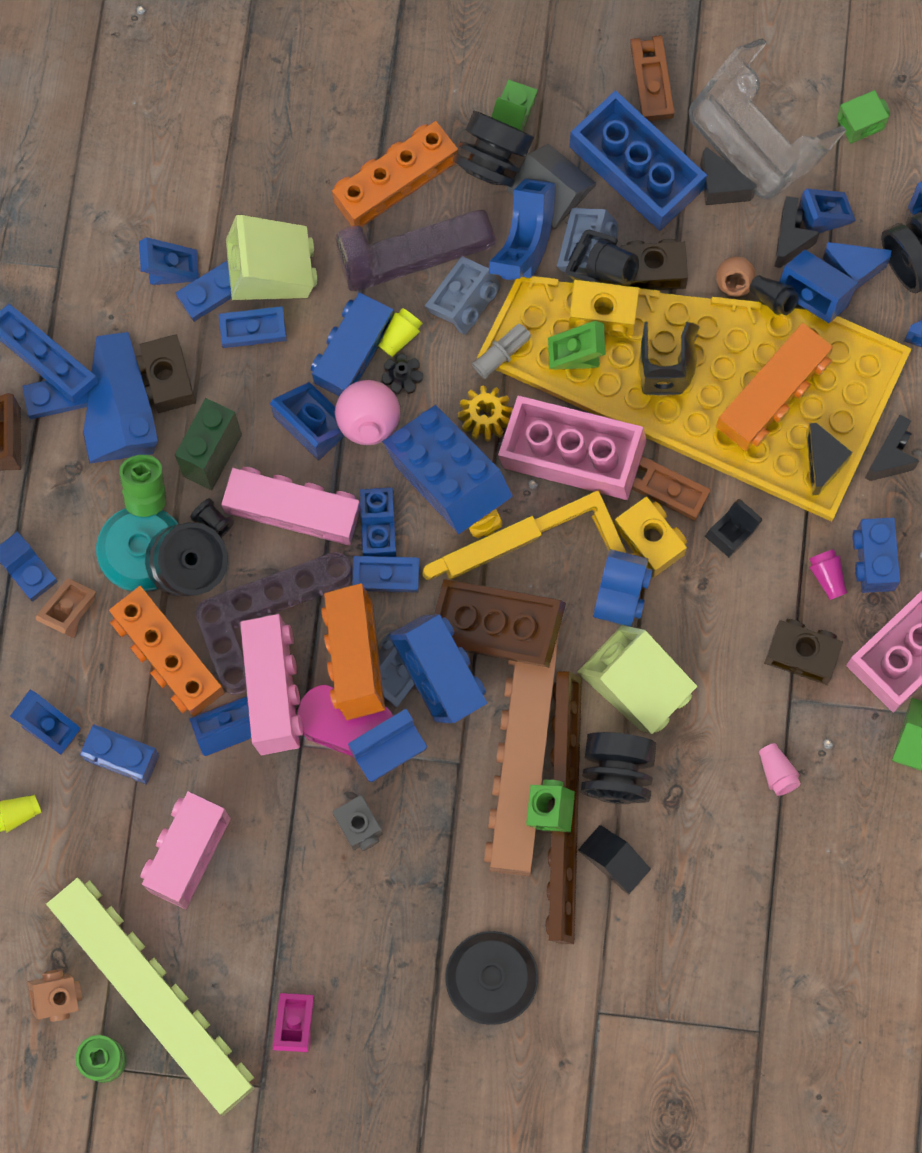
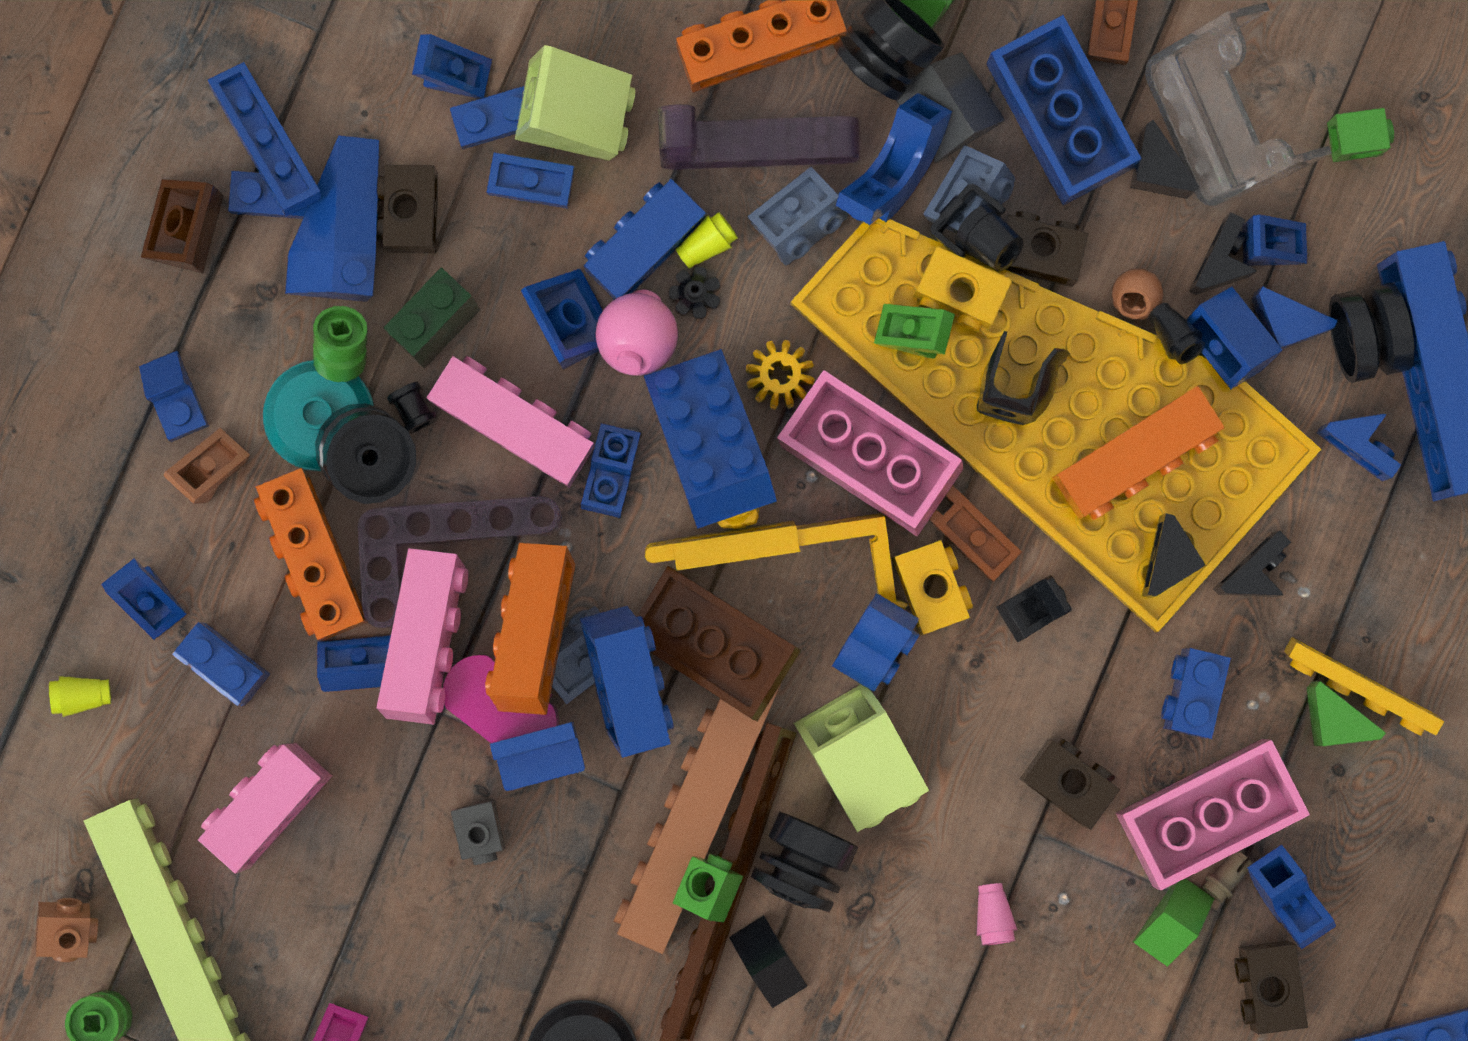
camera: 10 degrees right, 10 degrees up
(386, 573) = (601, 537): blue plate -> none
(501, 351) = (822, 304): light grey axle -> none
(829, 573) = (1131, 696): dark pink cone -> none

